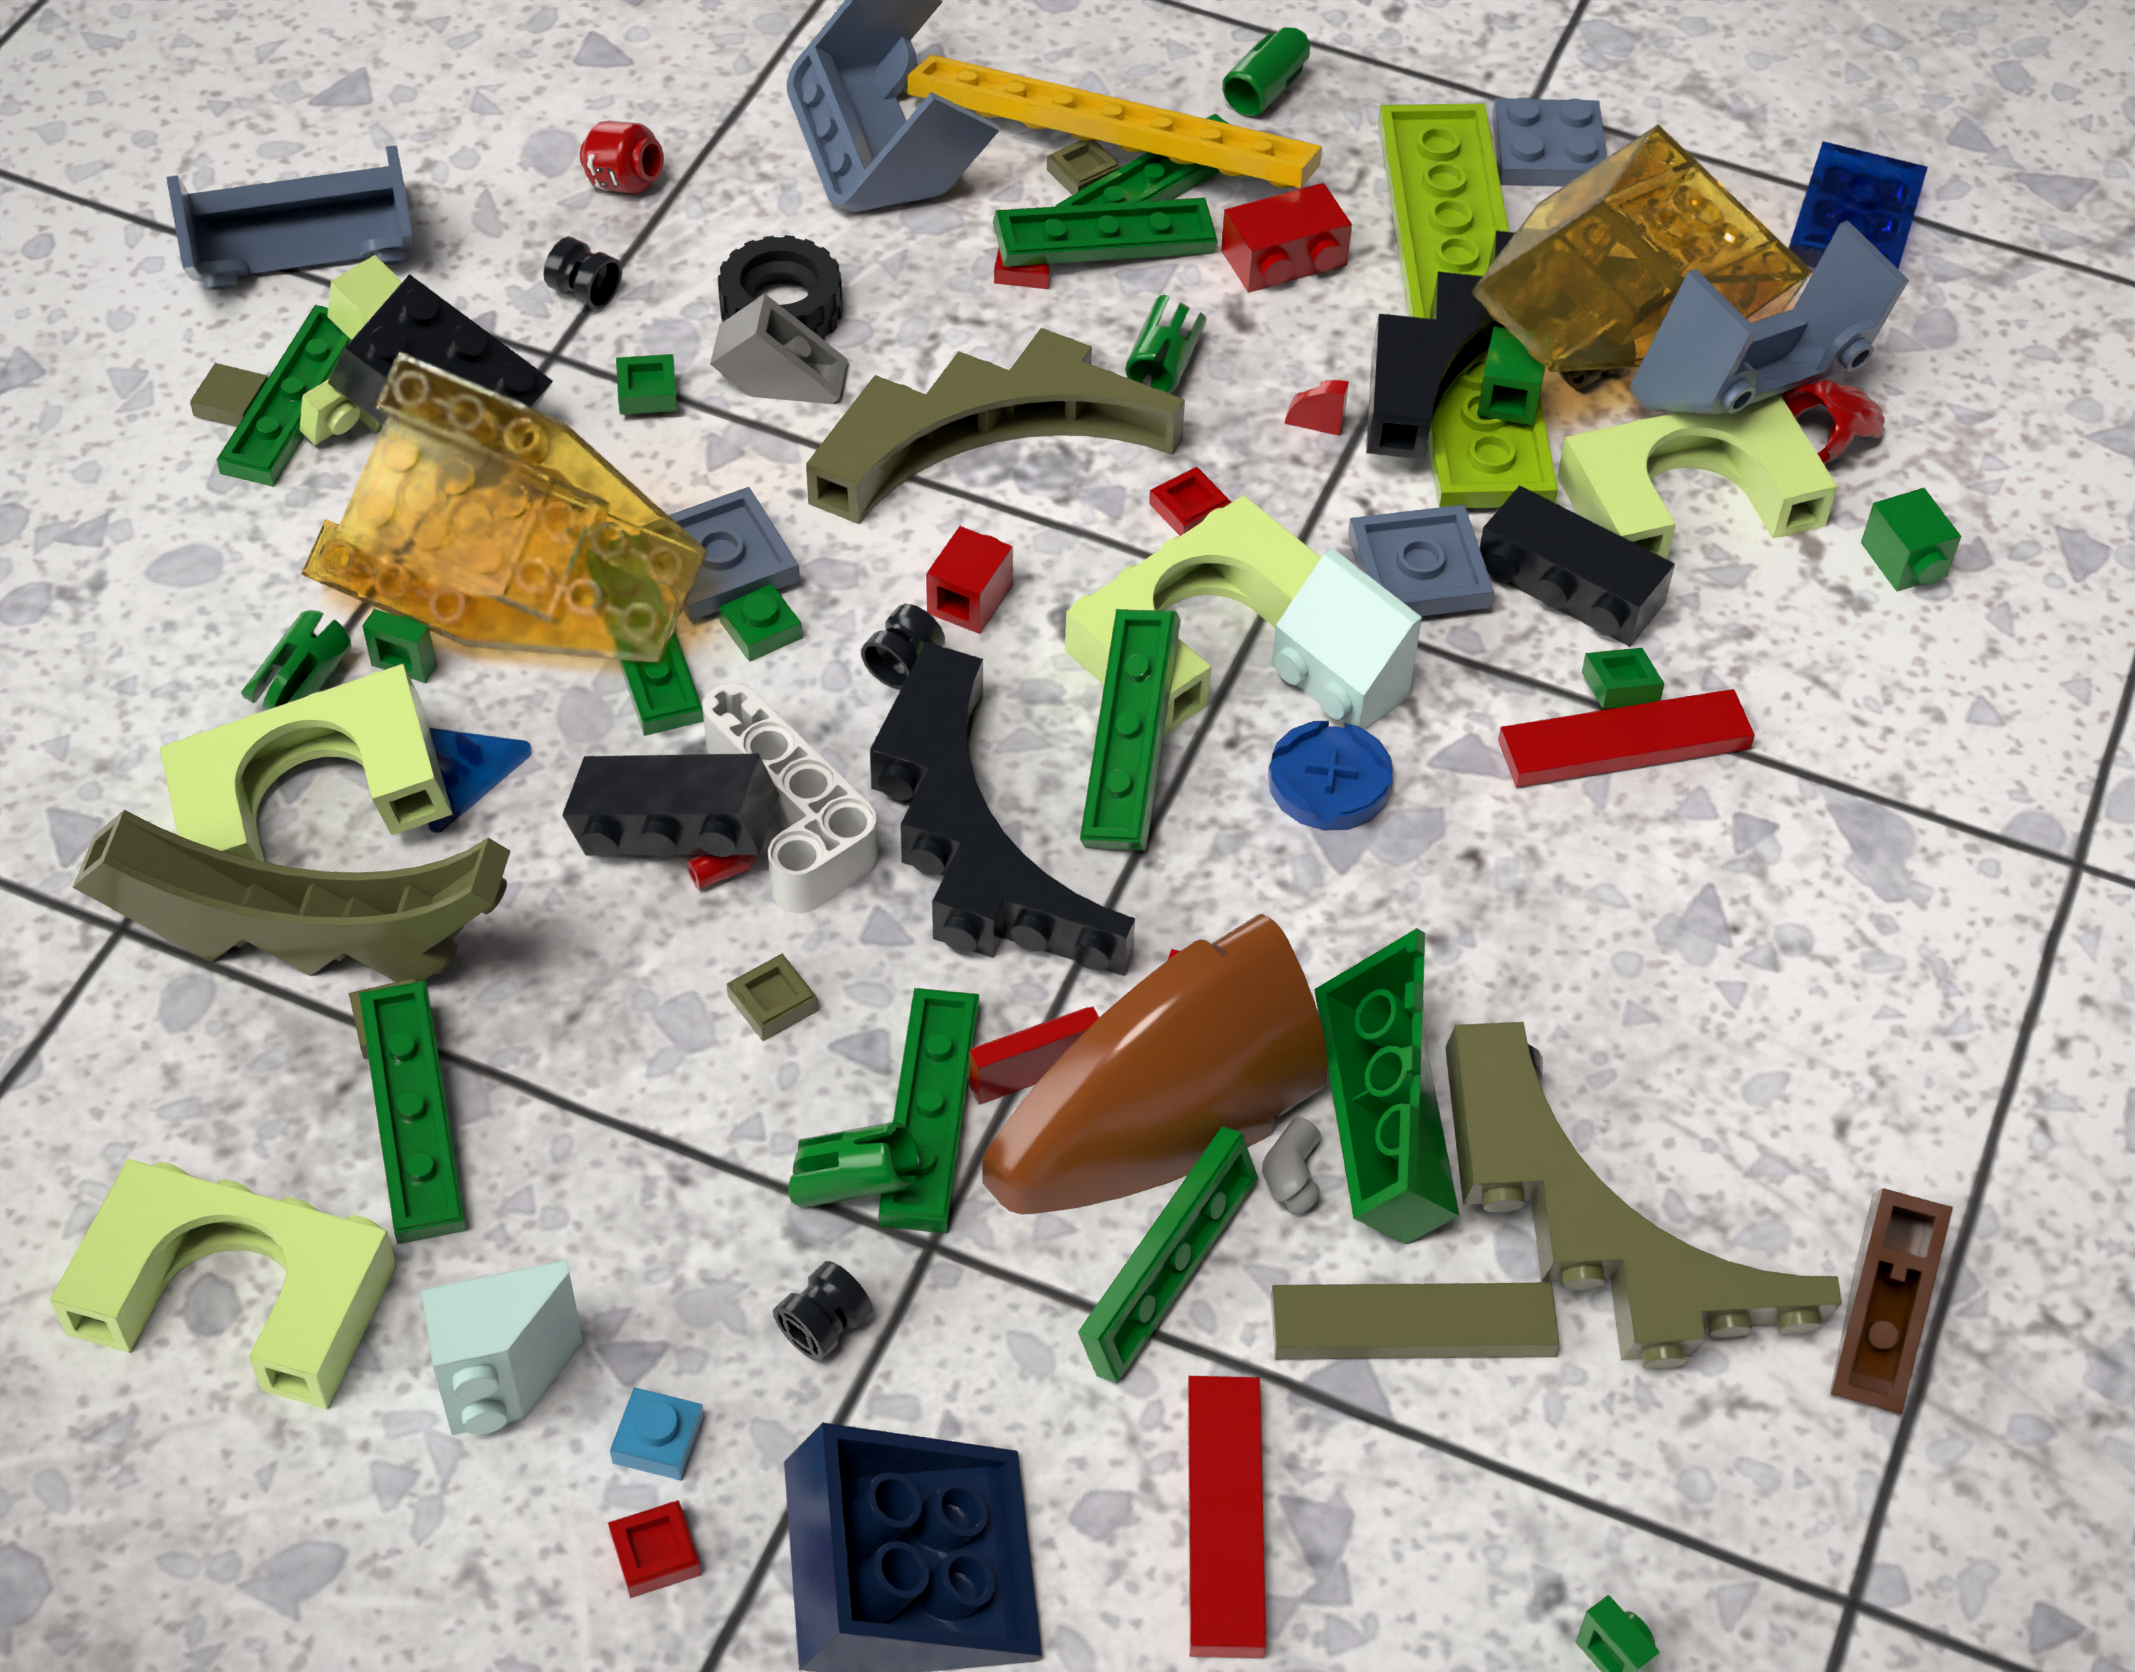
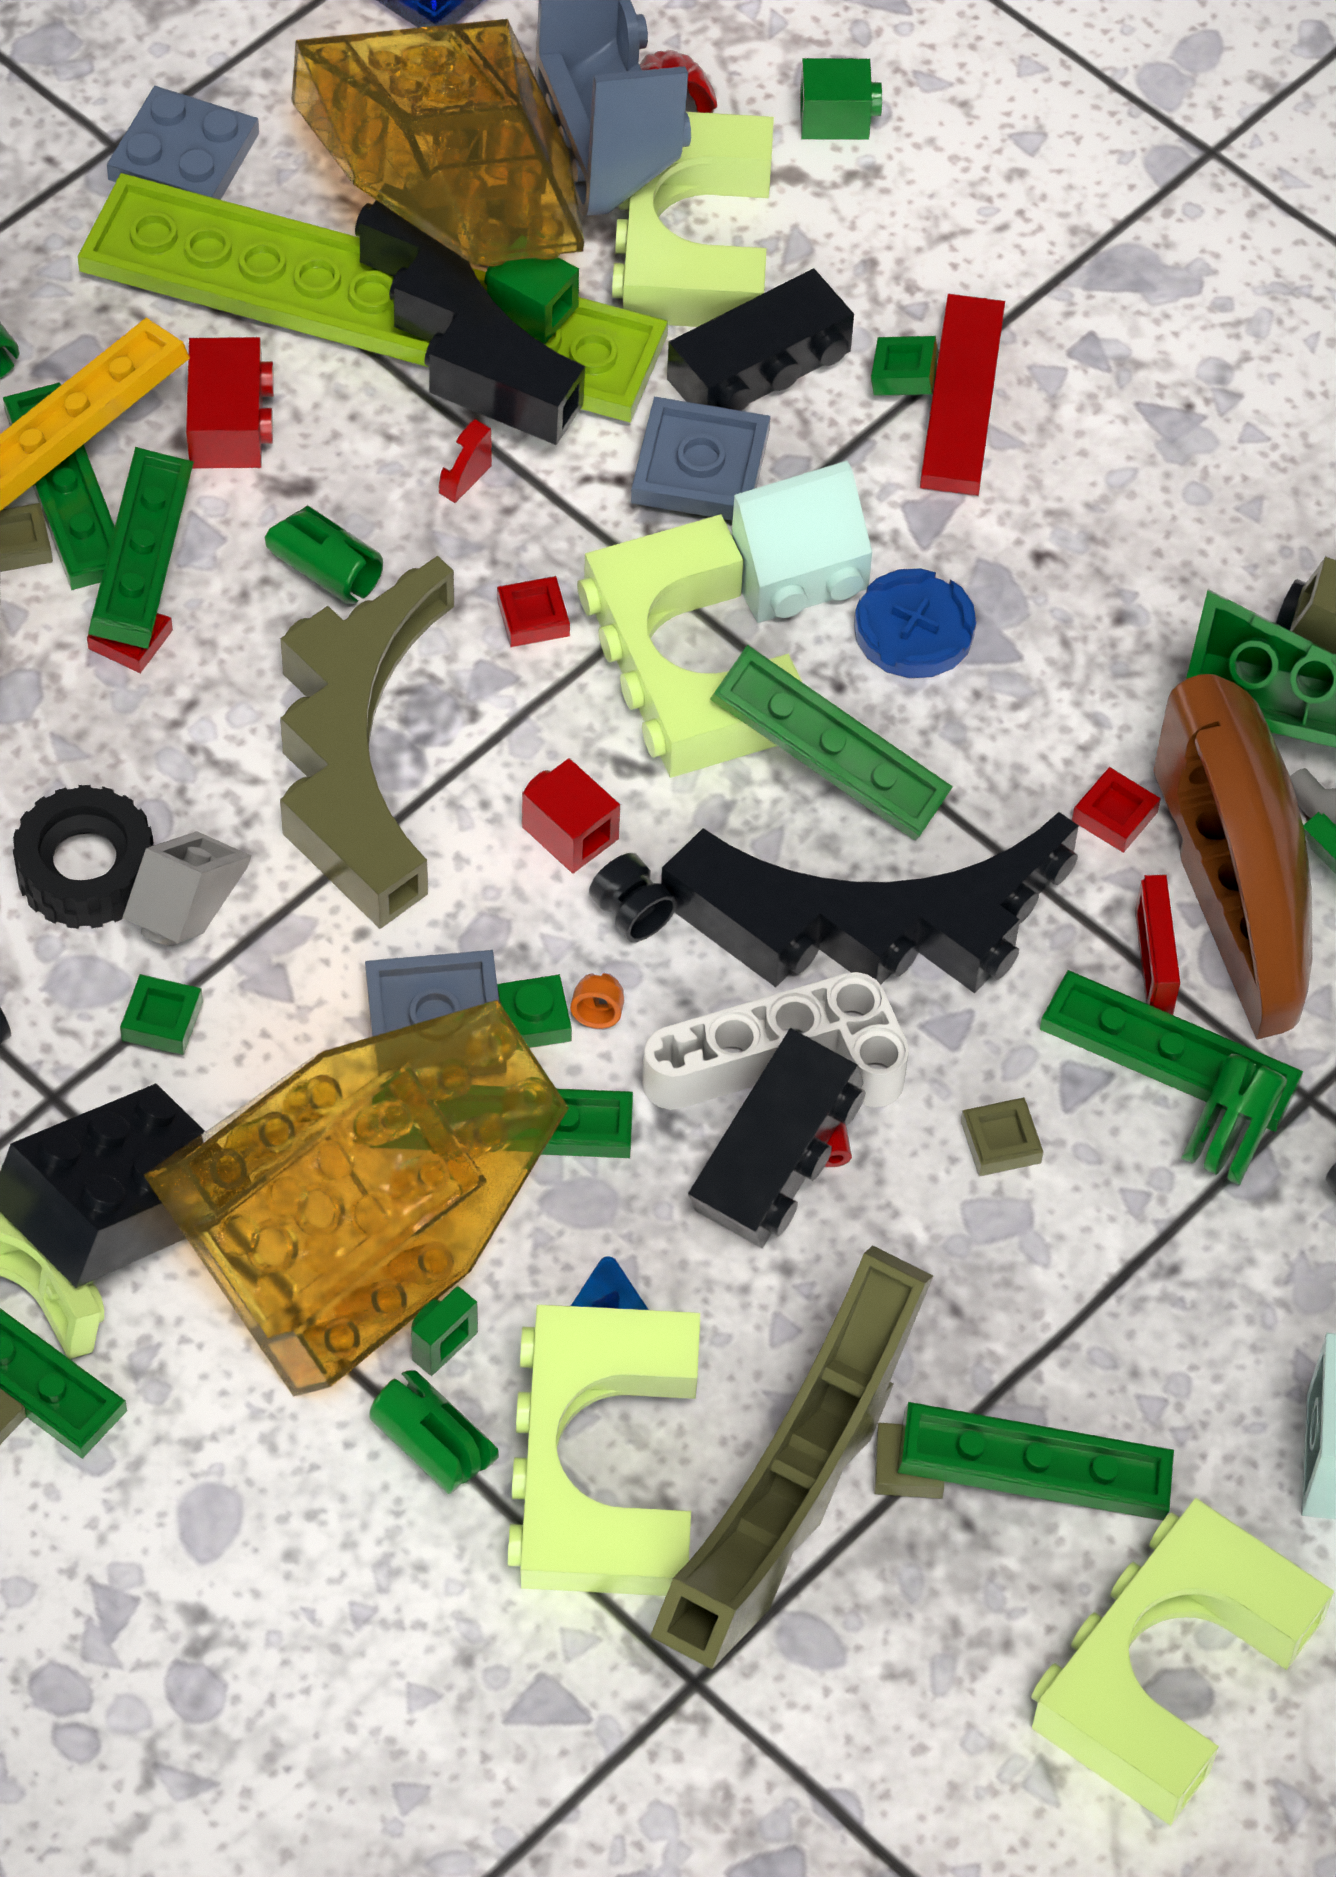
camera: 70 degrees left, 5 degrees up
(788, 655) = (586, 1005): none -> orange hinge

